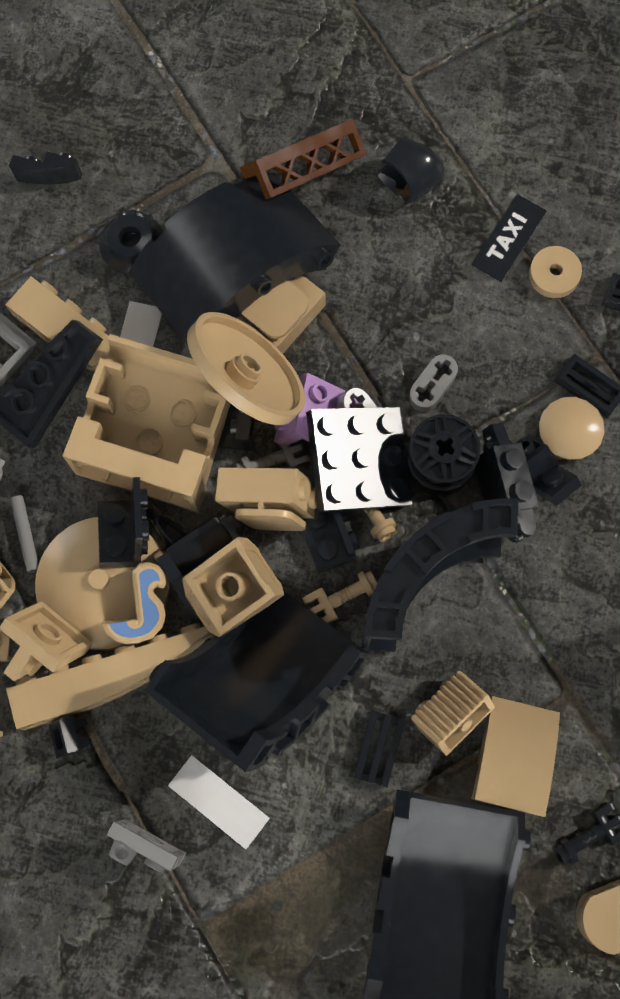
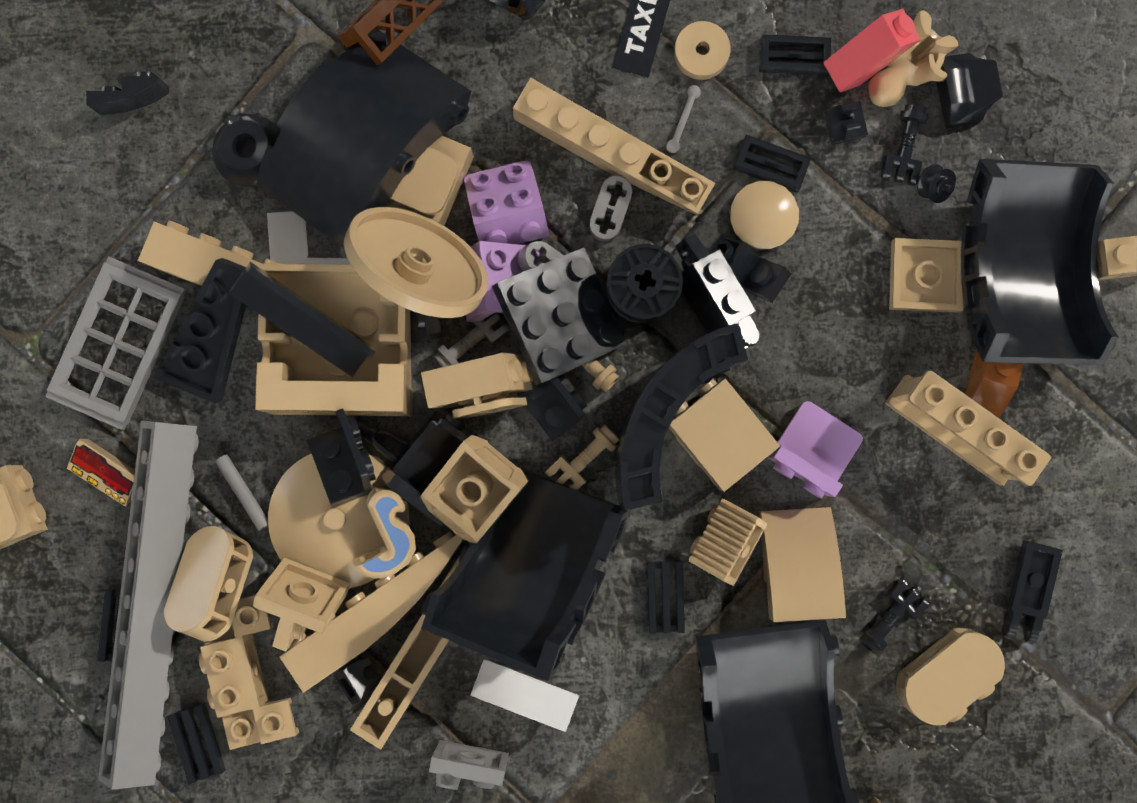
camera: 20 degrees left, 10 degrees up
(110, 747) = (400, 683): none -> tan slope
(129, 391) = (301, 319): none -> black panel
(342, 352) = (506, 204): none -> lavender bracket
(448, 328) = (609, 147): none -> tan slope
(475, 609) = (722, 434): none -> tan brick
(506, 345) = (673, 145): none -> light grey hinge
(560, 653) = (816, 449): none -> lavender bracket

